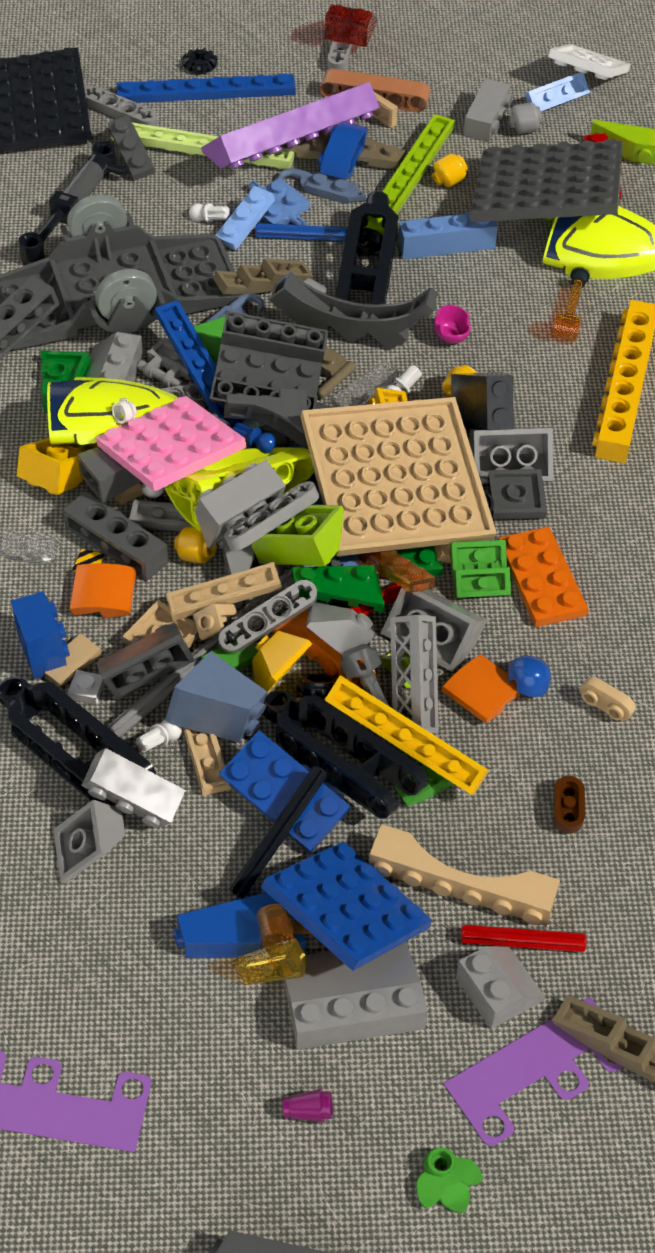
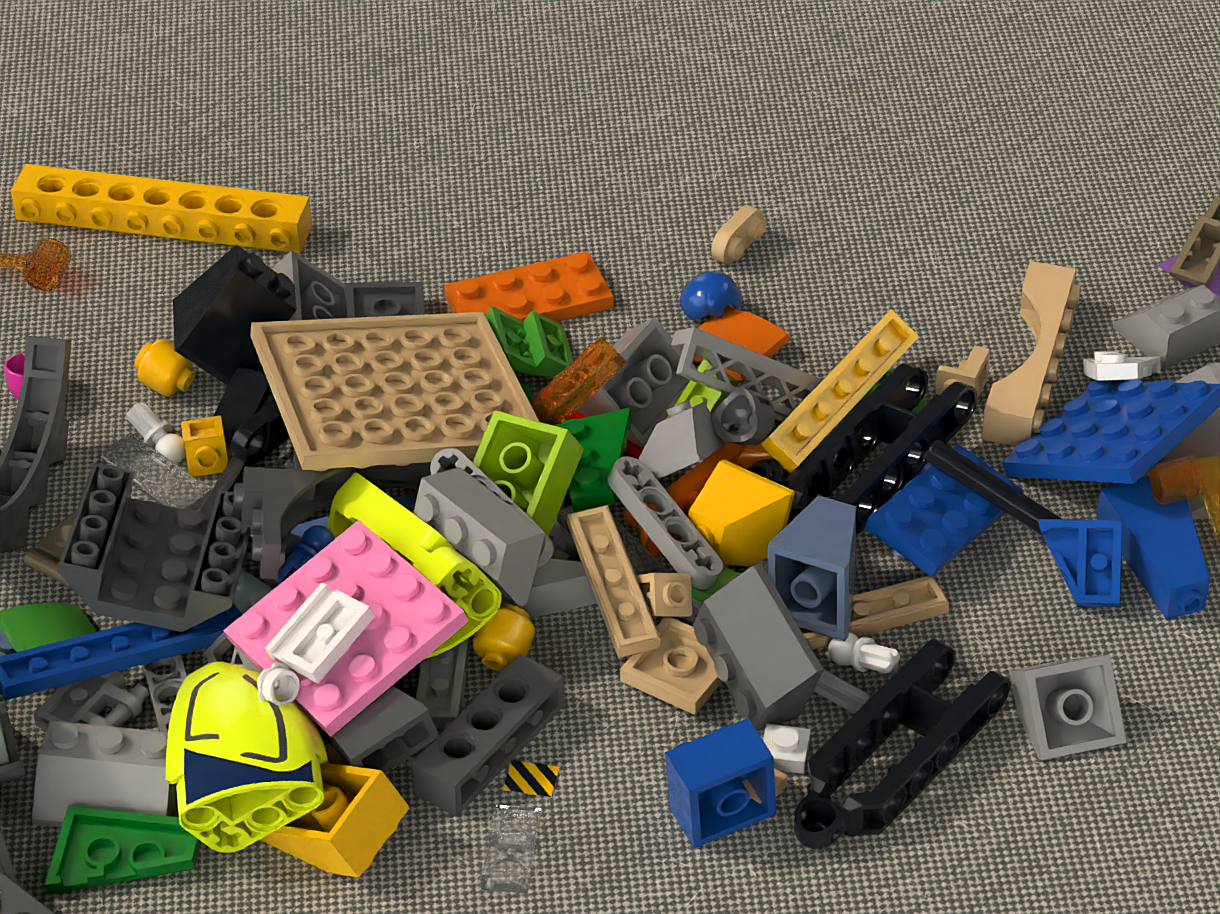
camera: 90 degrees left, 10 degrees down
(103, 589) = (597, 744): orange slope -> none
(133, 788) = (990, 643): brick -> none
(149, 420) = (320, 632): none -> white plate
(223, 873) = (1088, 558): none -> blue wing
(434, 831) = (970, 371): none -> tan bracket
(436, 929) = (1116, 366): none -> white wing
(523, 938) = (1100, 303): red axle -> none
(569, 806) = (903, 269): reddish brown plate -> none

